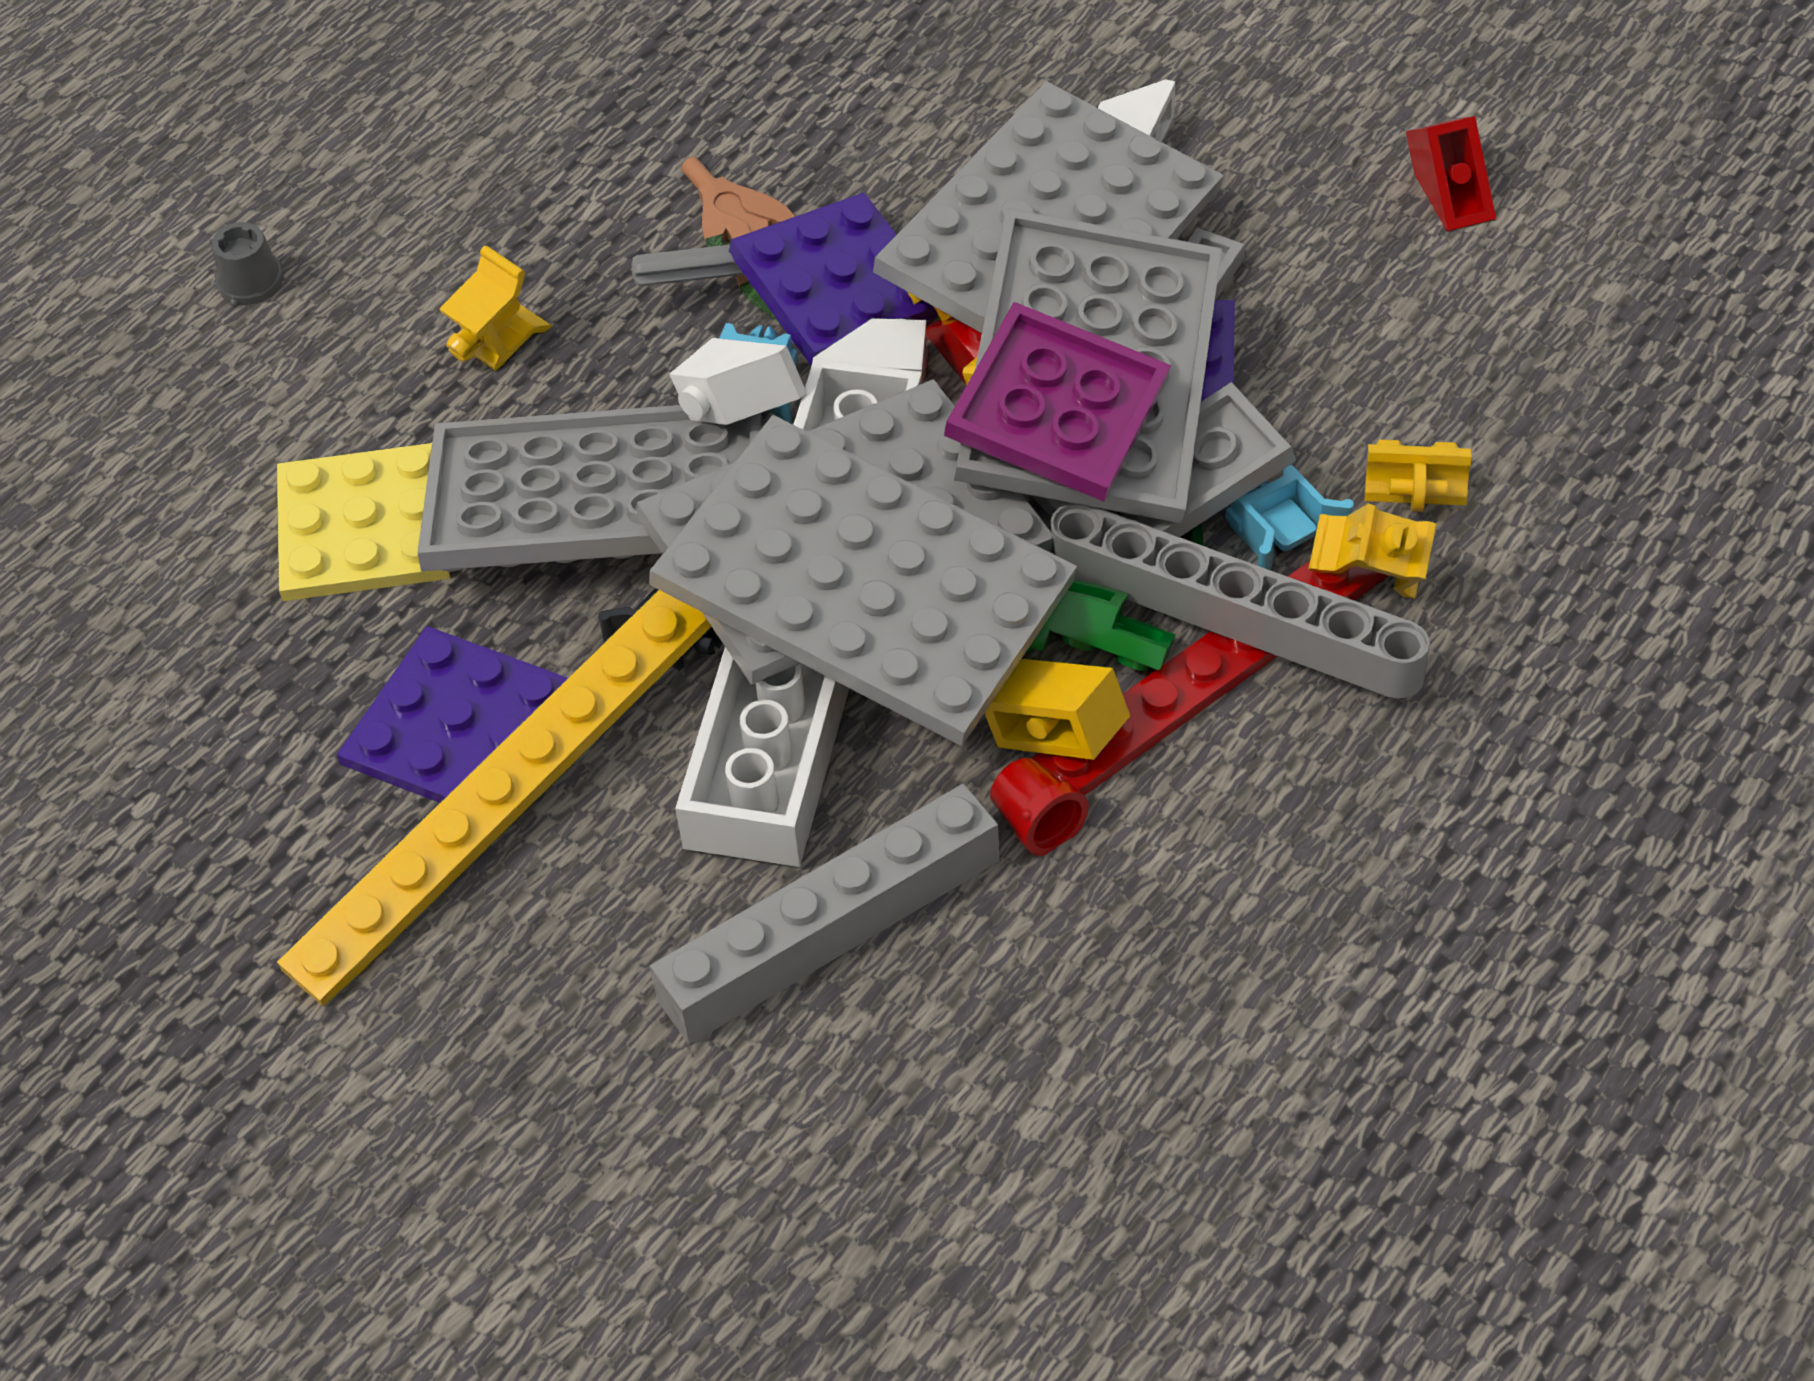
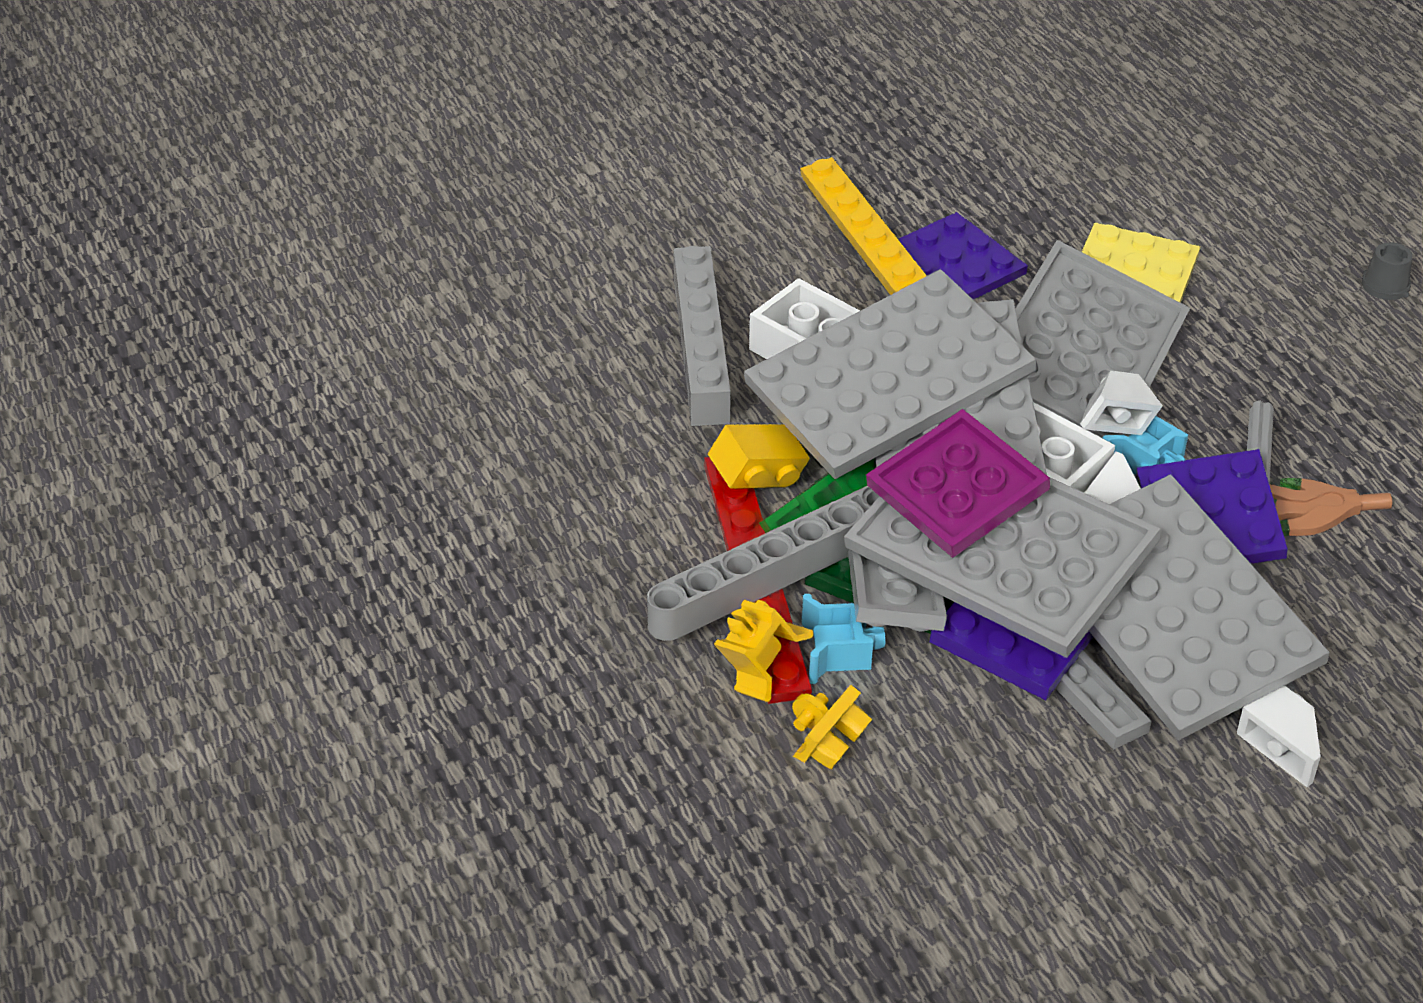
camera: 115 degrees right, 10 degrees down
(490, 313) = (1262, 350): yellow piece -> none
(1038, 805) = (698, 434): red piece -> none
(1452, 171) = (1128, 903): red slope -> none

